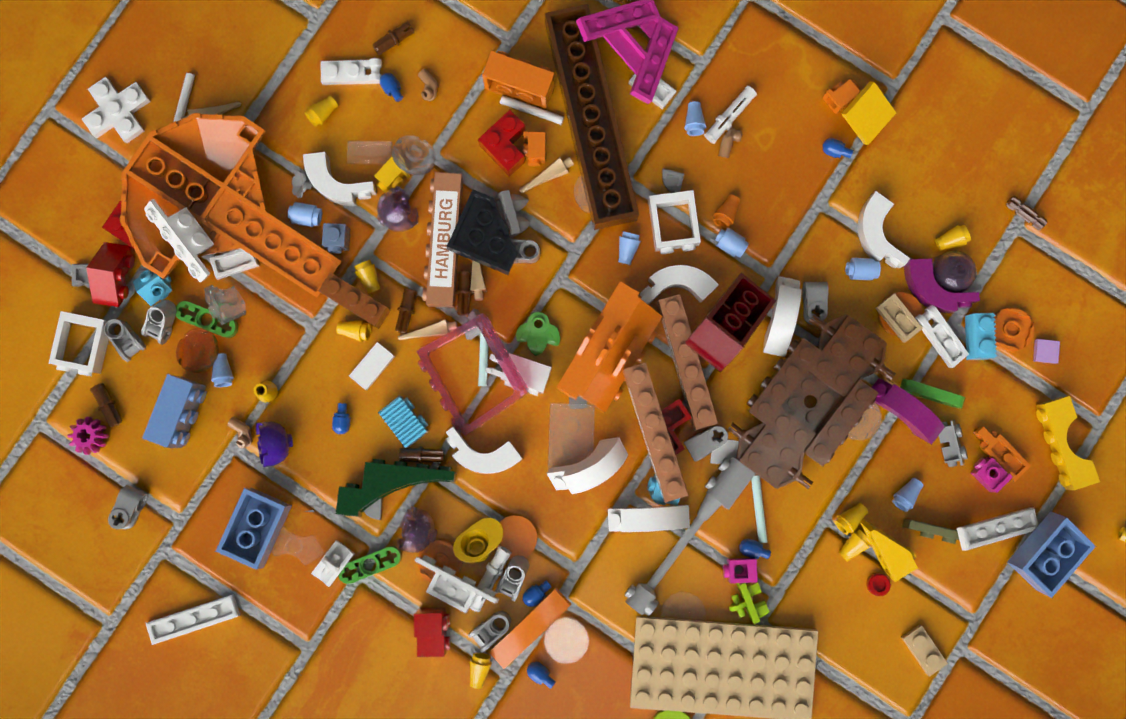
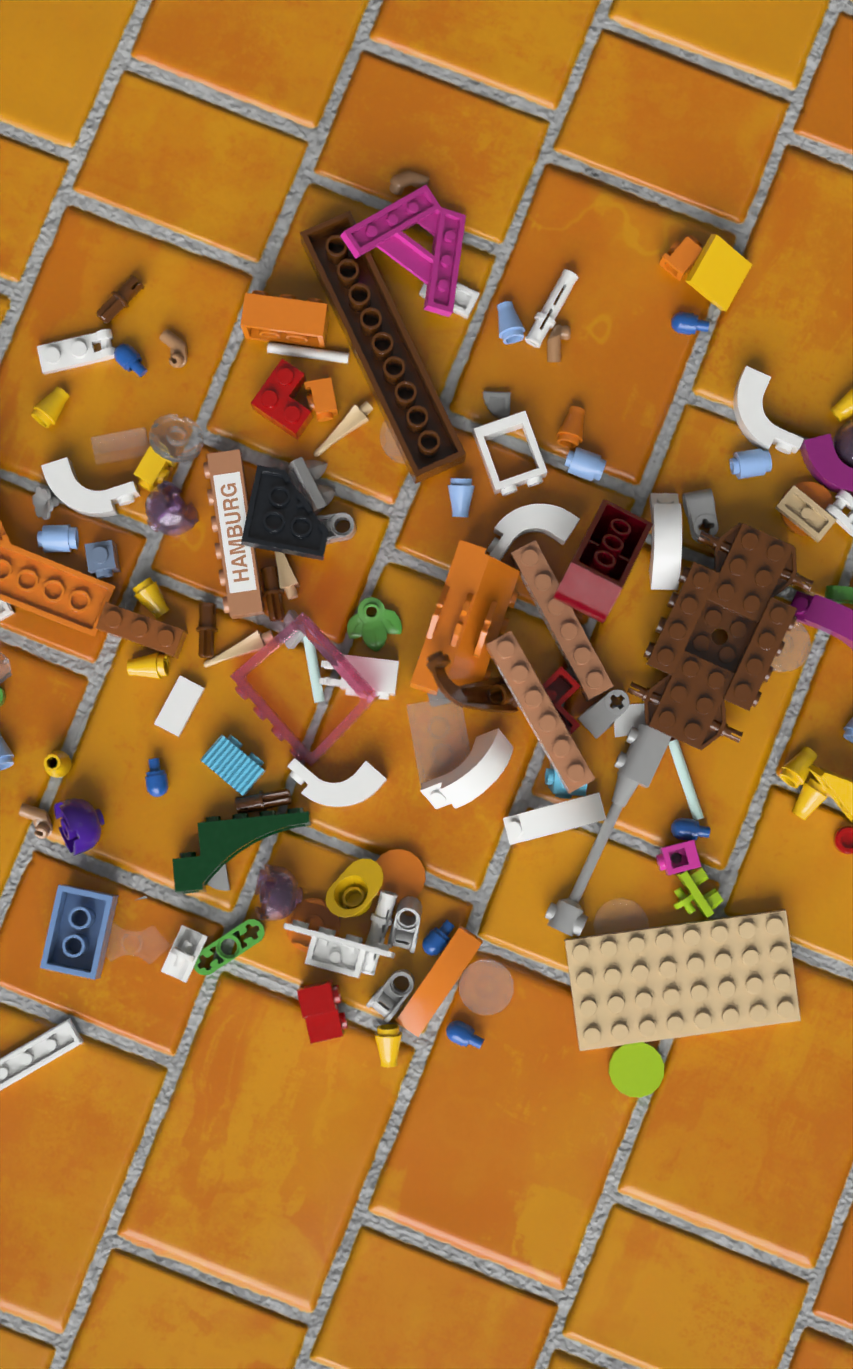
camera: 15 degrees left, 0 degrees up
(609, 409) = (478, 695): none -> reddish brown animal

